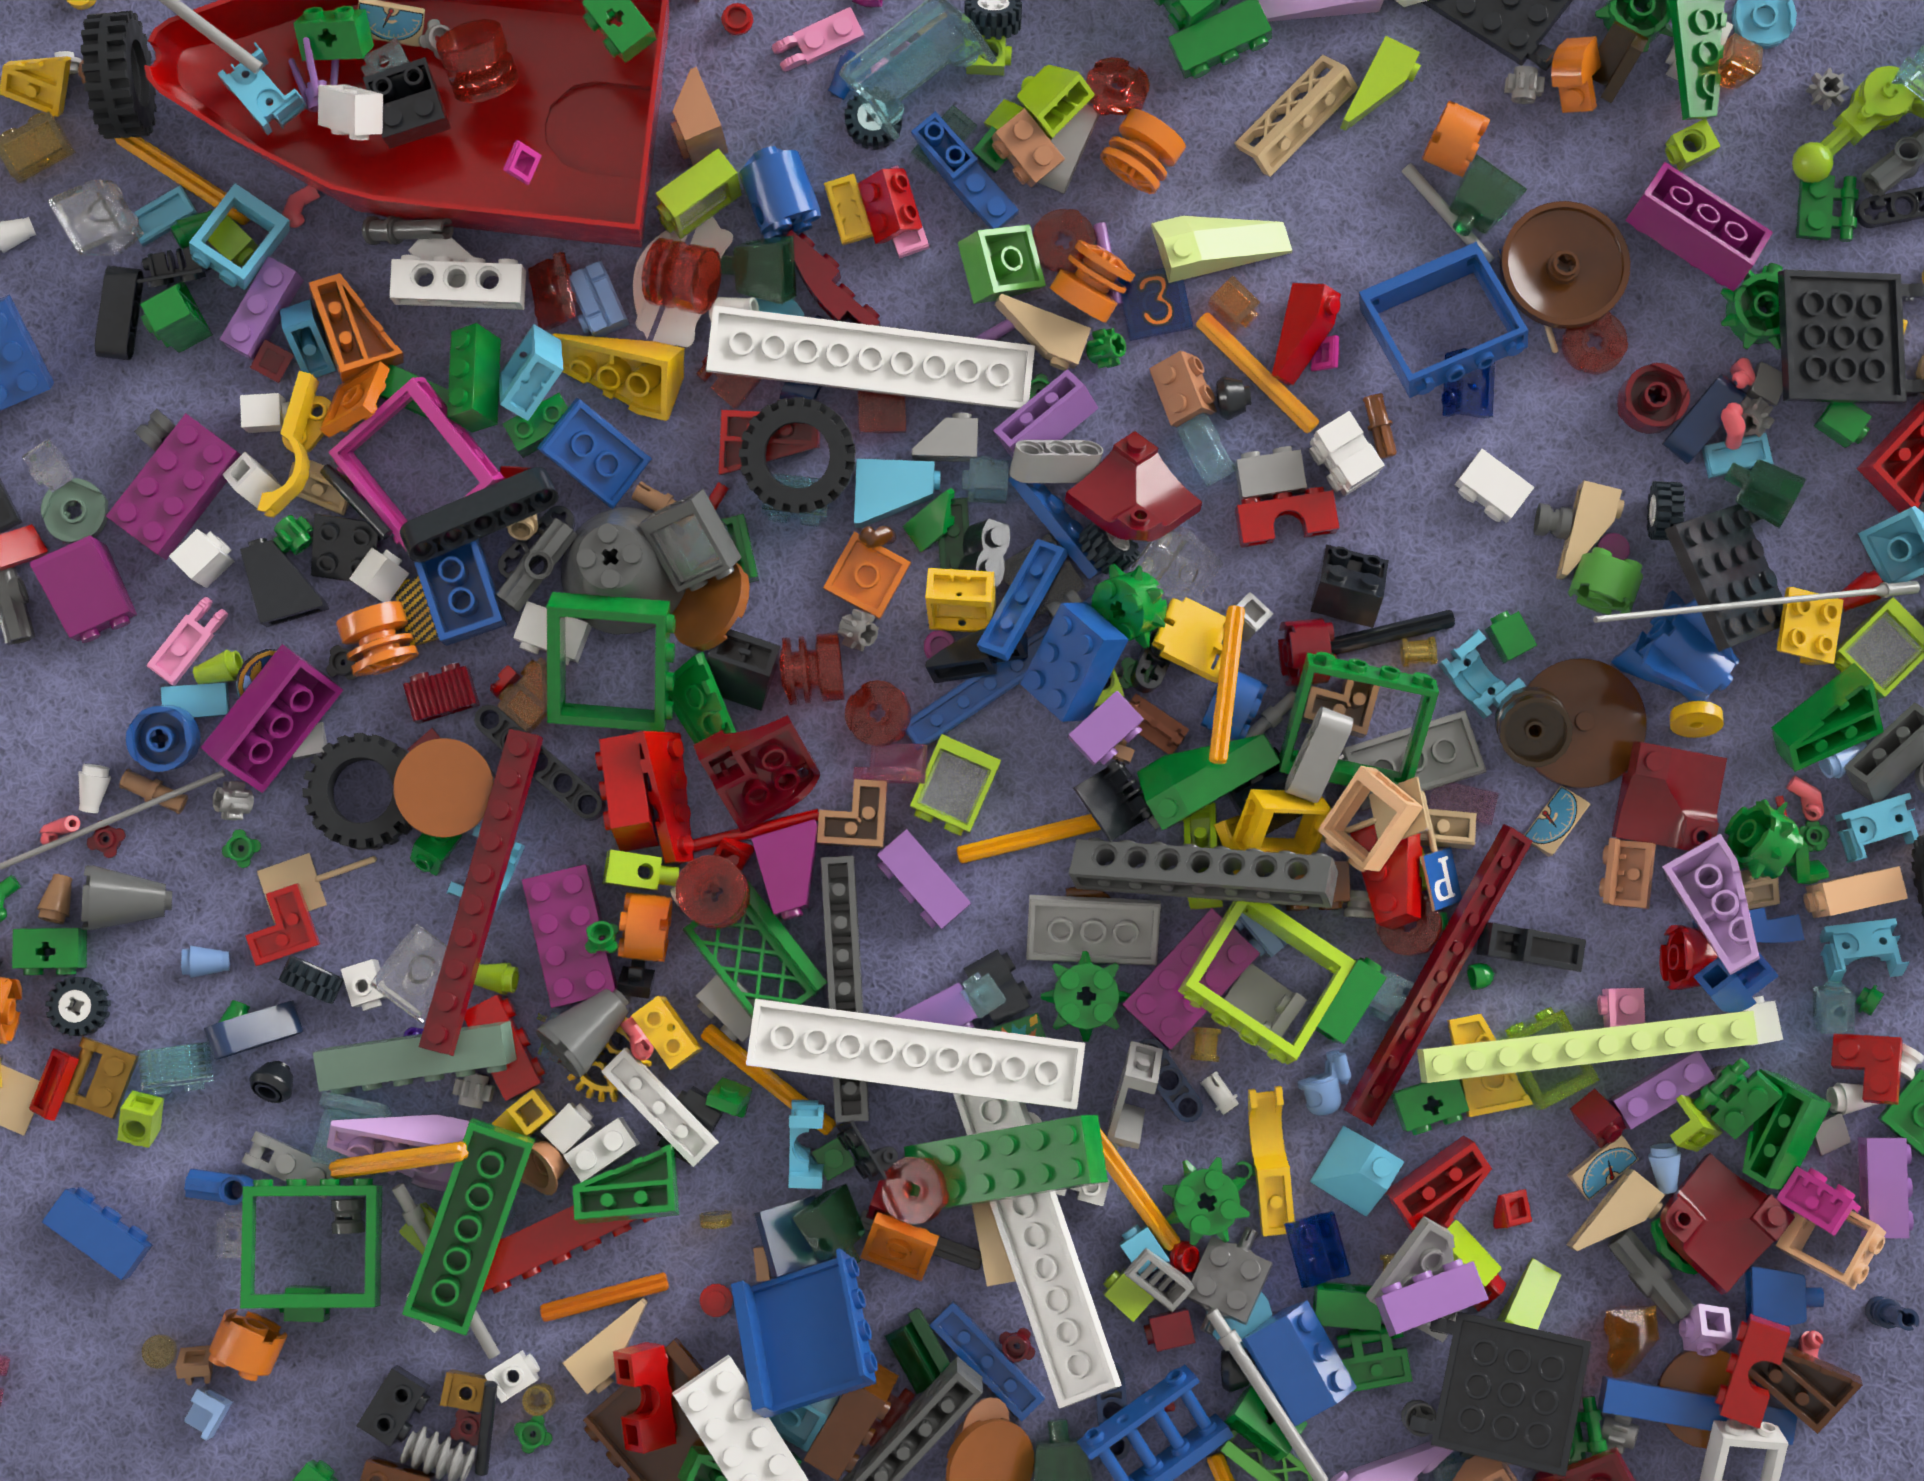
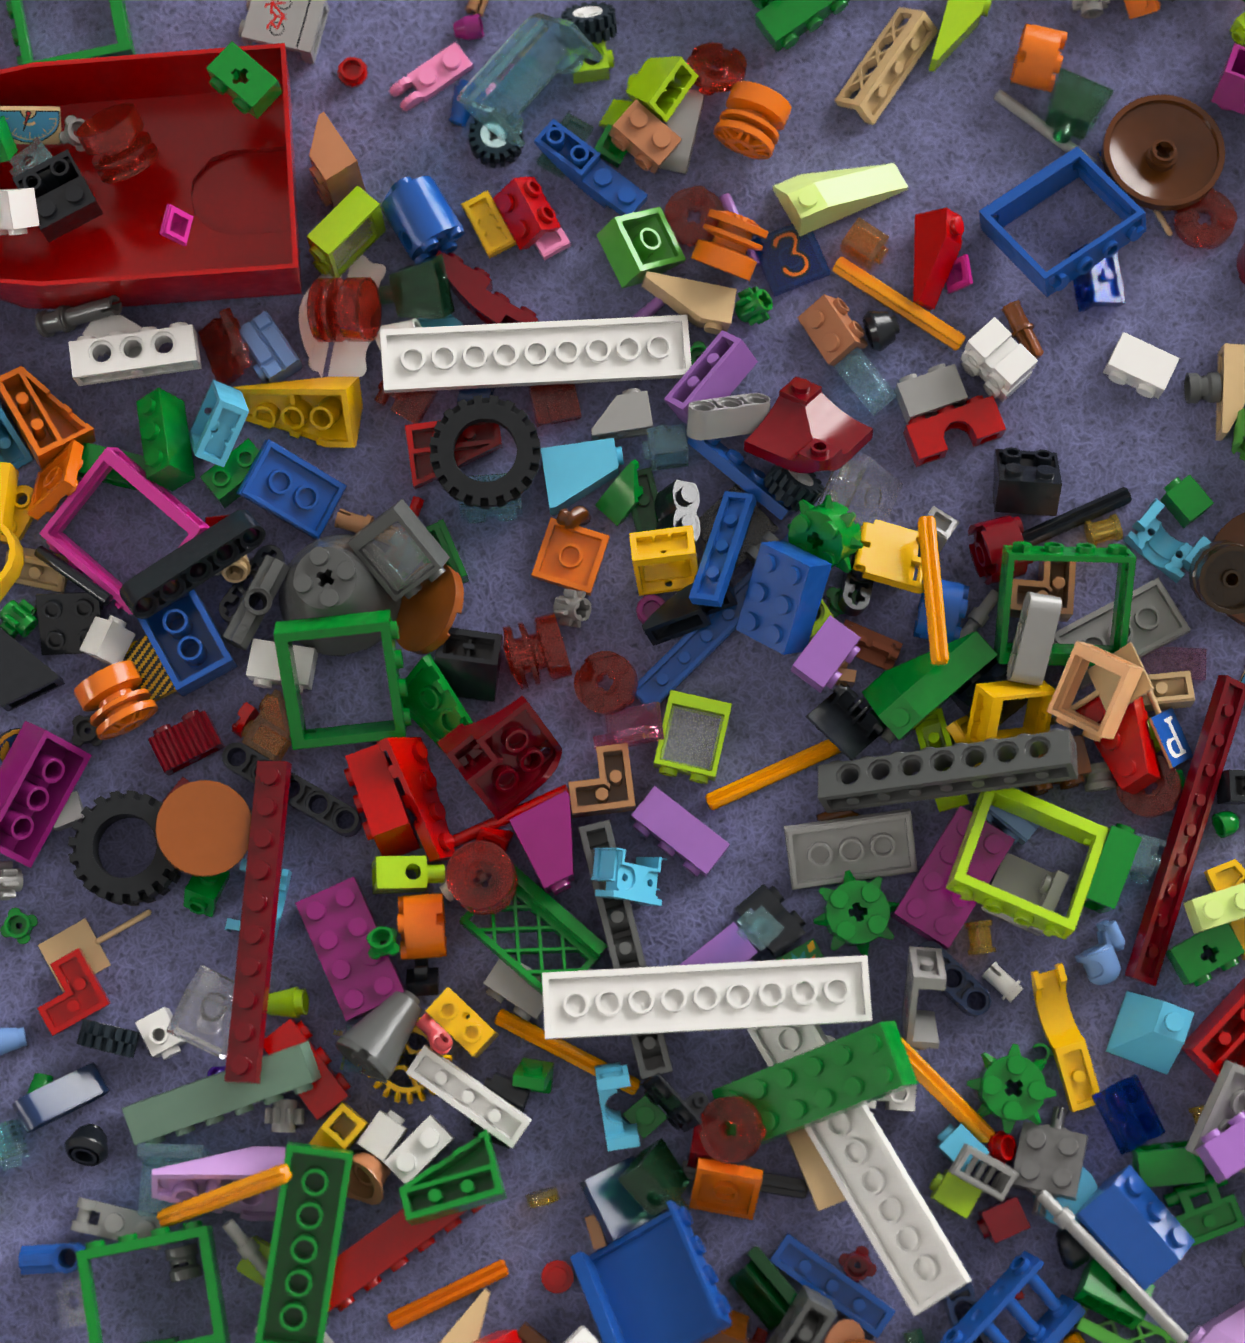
camera: 10 degrees left, 5 degrees down
(858, 920) = (627, 880): none -> medium azure piece

